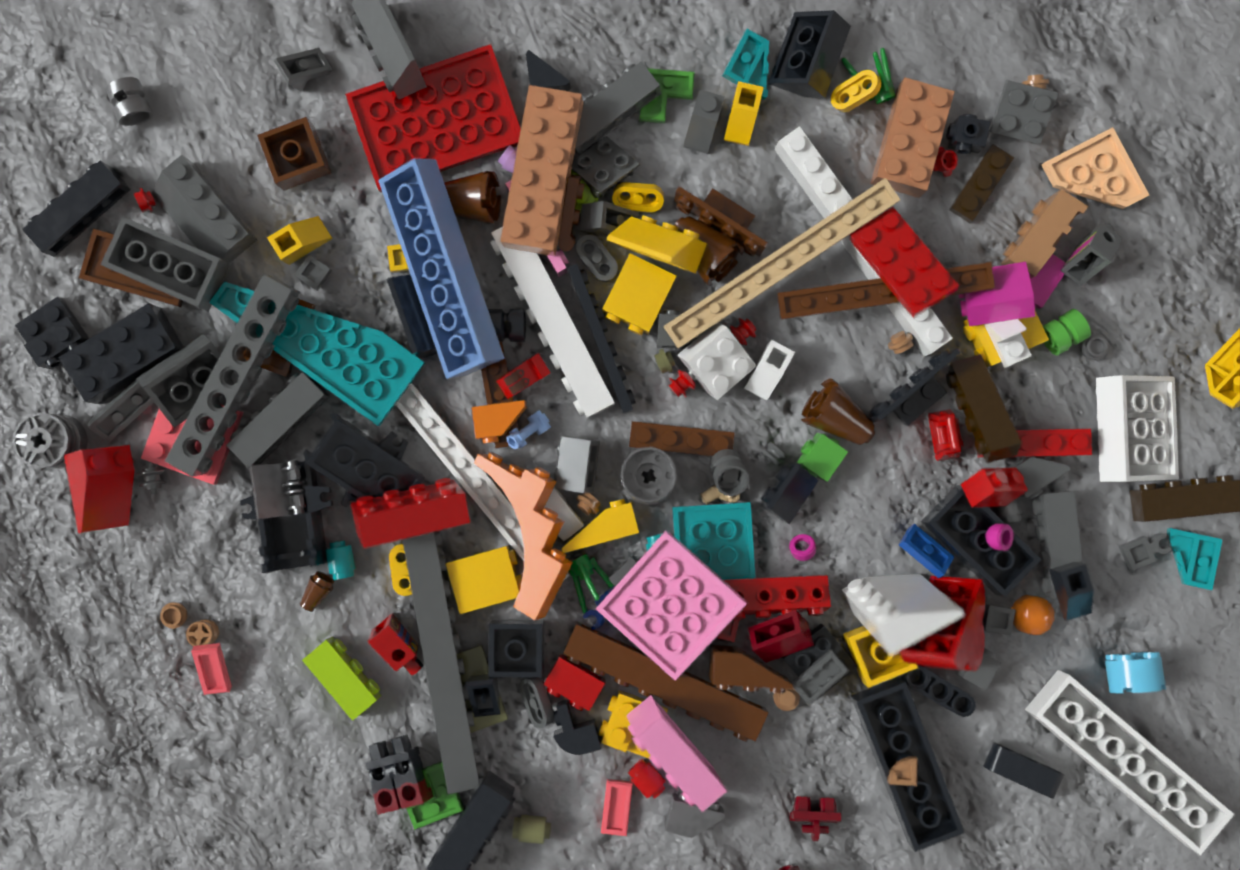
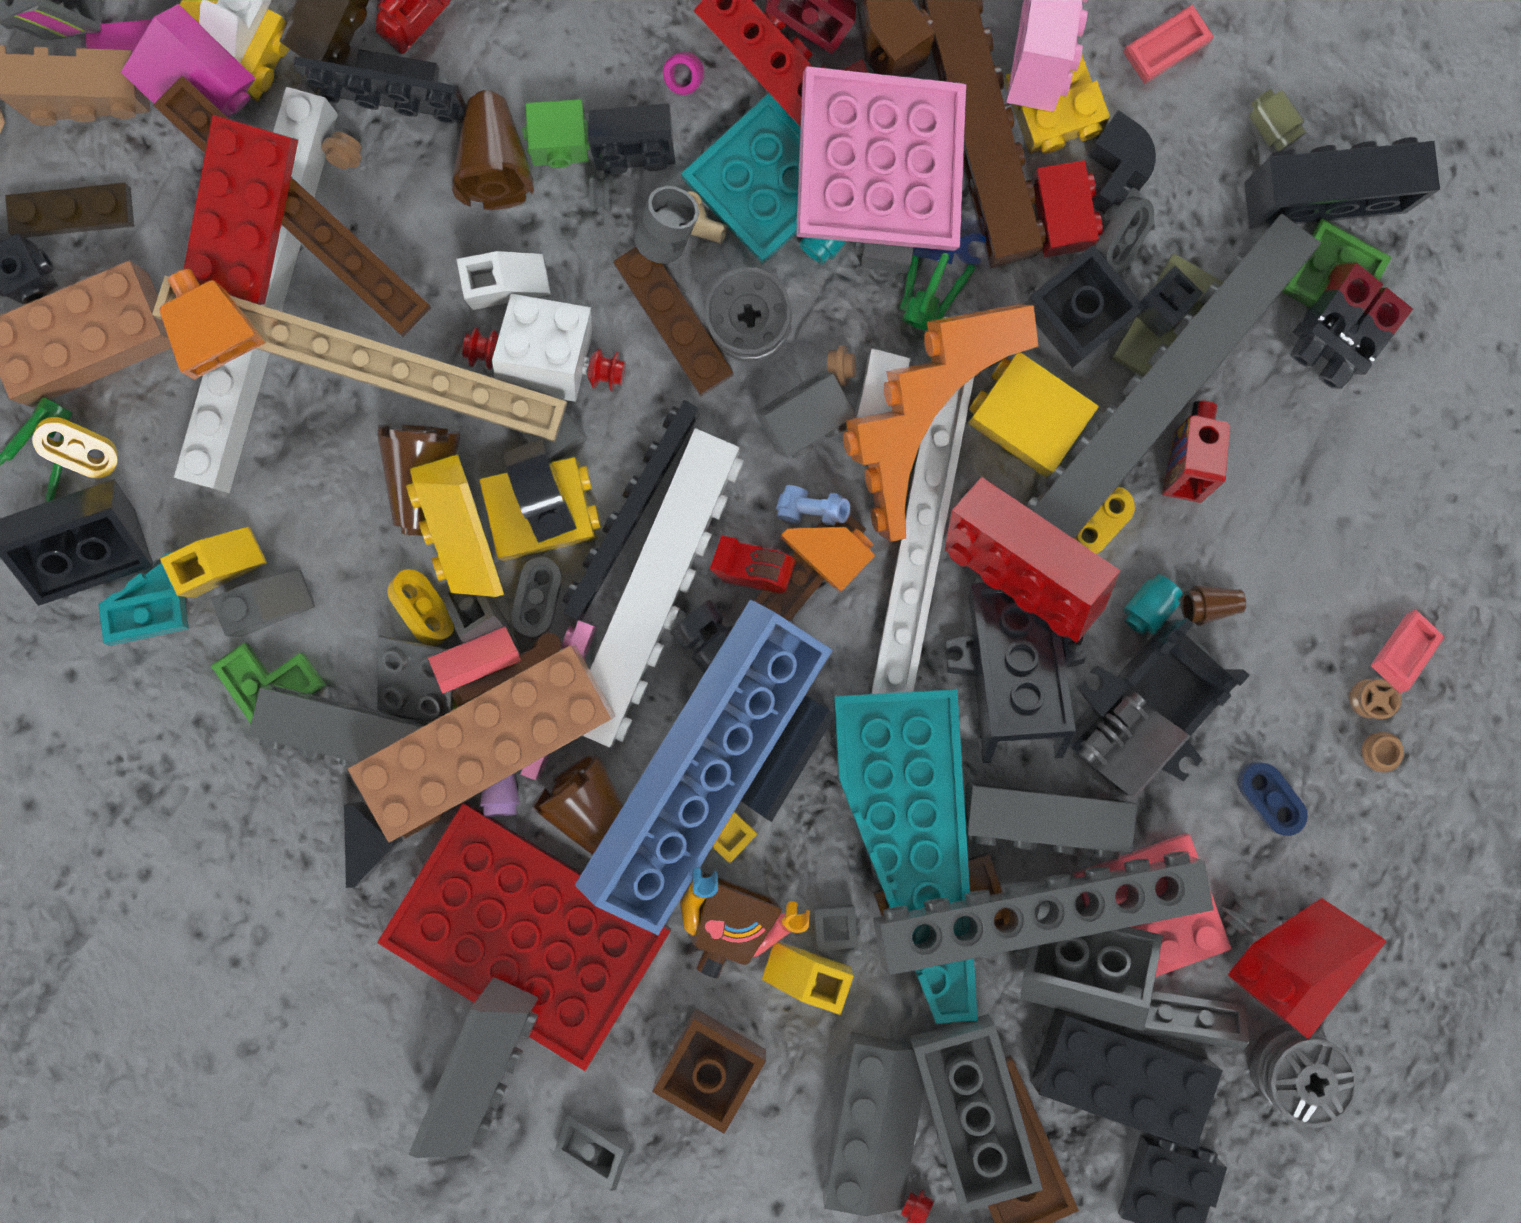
camera: 135 degrees left, 0 degrees up
(198, 540) = (1271, 797): none -> dark blue plate
(342, 677) = (1287, 486): lime brick -> none
(356, 224) = (733, 921): none -> torso
(586, 199) = (474, 659): none -> coral tile
(609, 525) = (849, 320): yellow slope -> none
(645, 298) = (538, 490): none -> black brick
(647, 779) = (1106, 33): red brick -> none
(664, 361) = (595, 413): olive plate -> none
(724, 216) = (360, 484): reddish brown bracket -> none
(856, 198) = (205, 325): none -> orange torso
(945, 161) = (75, 269): red plate -> none

